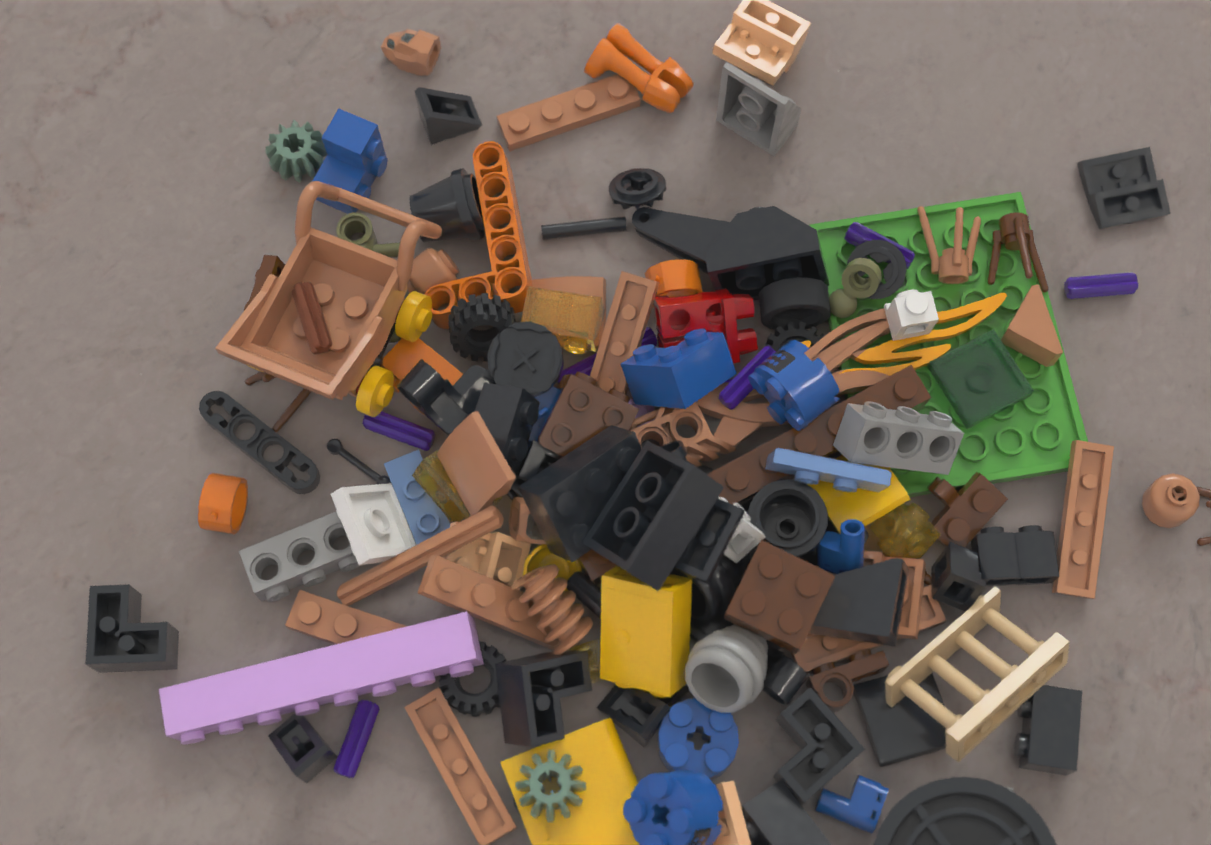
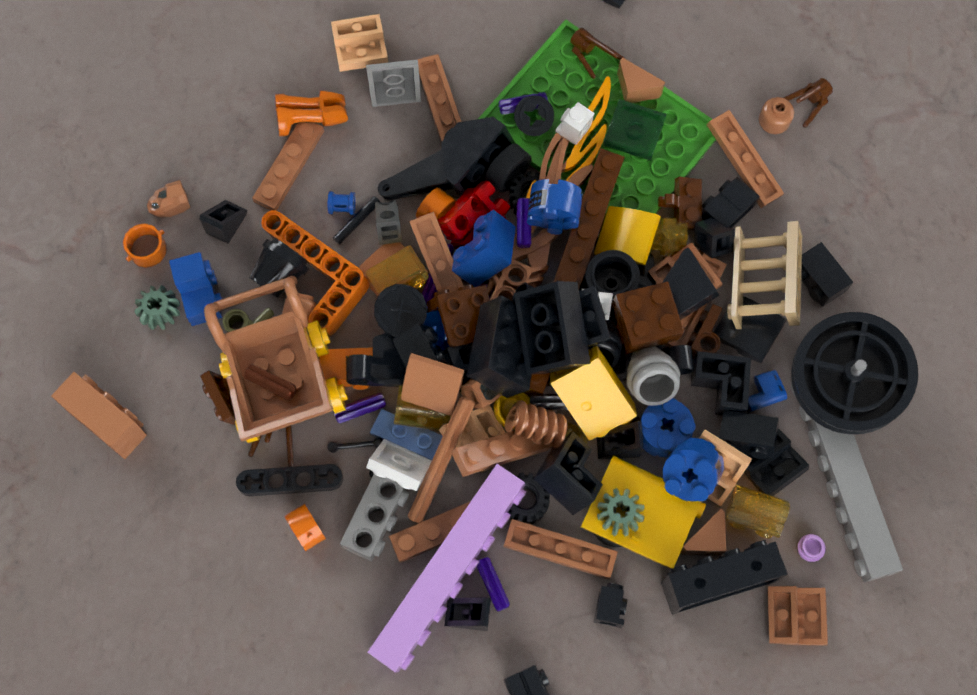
camera: 45 degrees left, 0 degrees up
(118, 638) = (320, 648): black brick -> none
(136, 212) = (100, 413): none -> nougat brick
(342, 57) = (137, 232): none -> orange piece
(474, 314) = (346, 319): black tyre -> none
(582, 196) = (341, 203): none -> blue bush
(609, 255) = (388, 222): none -> dark grey leg
(648, 183) = (364, 169): black gear -> none
(798, 160) = (438, 94): none -> nougat plate
(813, 468) = (604, 239): medium blue plate -> none
(844, 301) = (532, 144): olive plate -> none
(844, 550) = (654, 268): blue piece -> none
(898, 438) = (628, 190): light grey brick -> none
(953, 265) = (568, 81): nougat plant -> none
(1101, 285) = (646, 36): dark purple axle -> none

